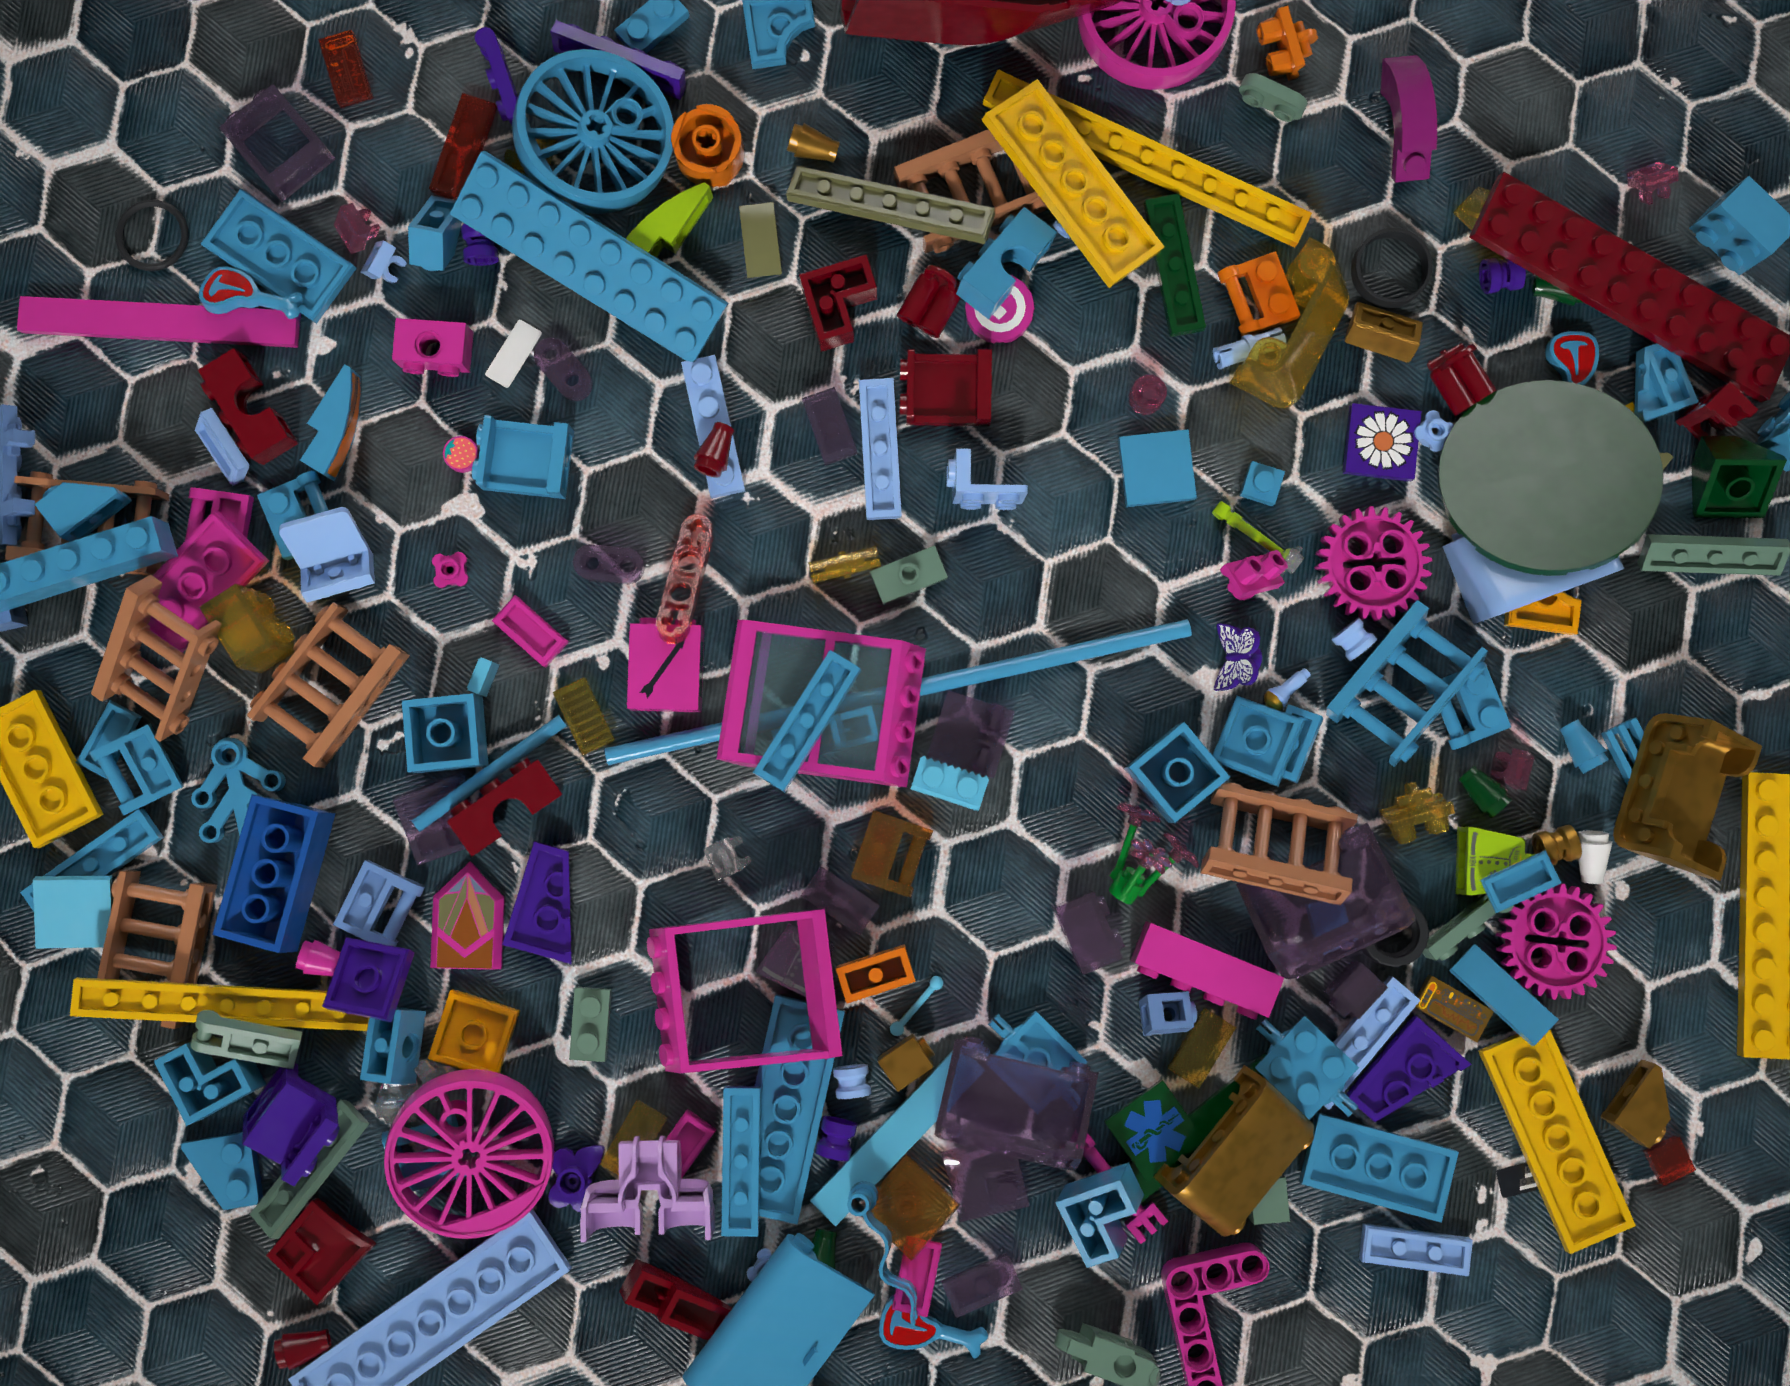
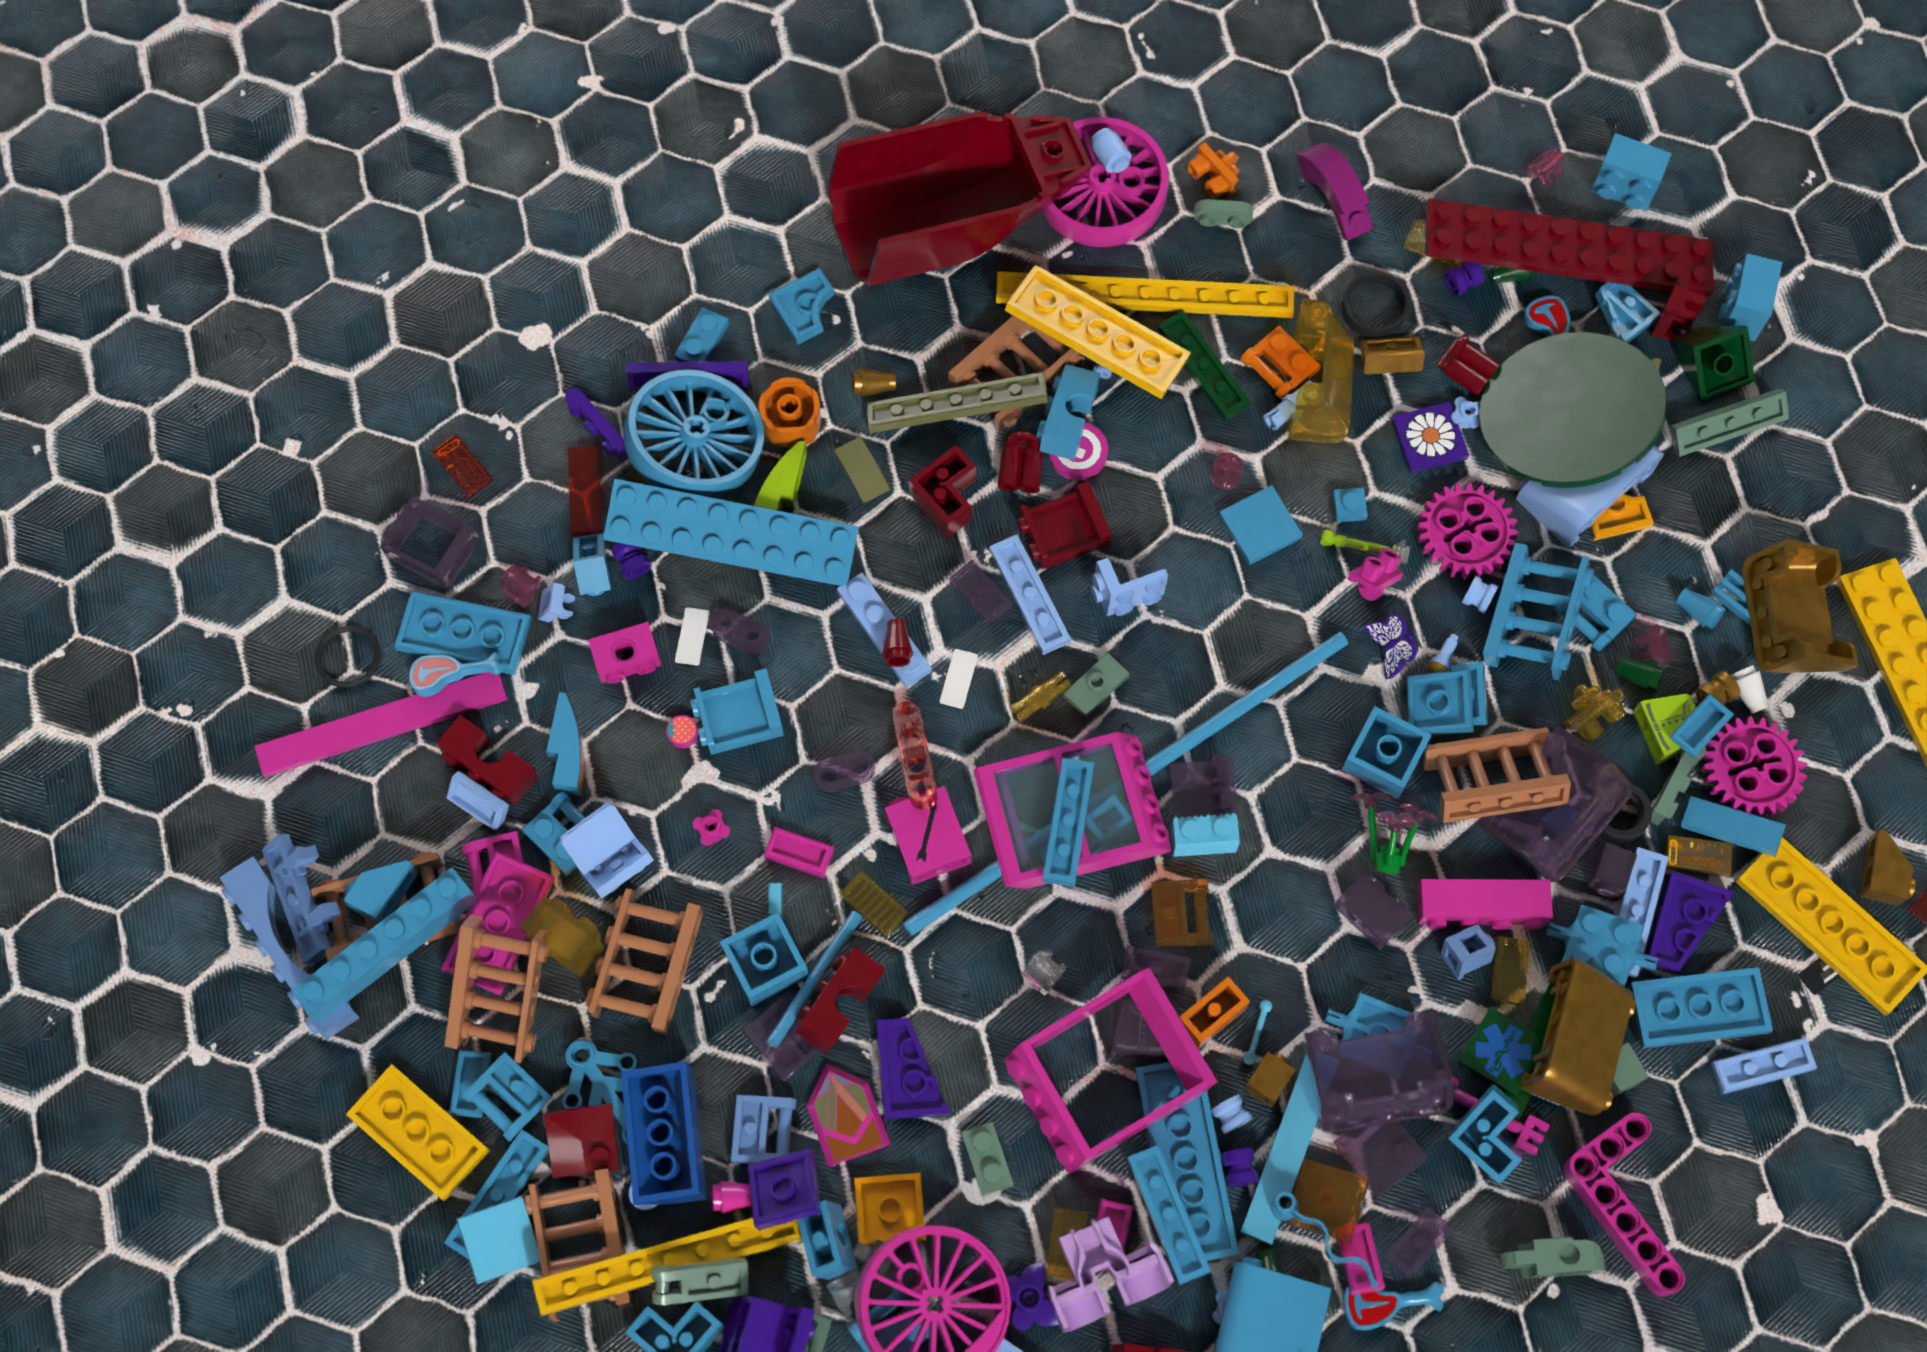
camera: 20 degrees left, 15 degrees down
(194, 844) = (582, 1140): none -> dark red plate
(770, 510) = (958, 678): none -> white sticker

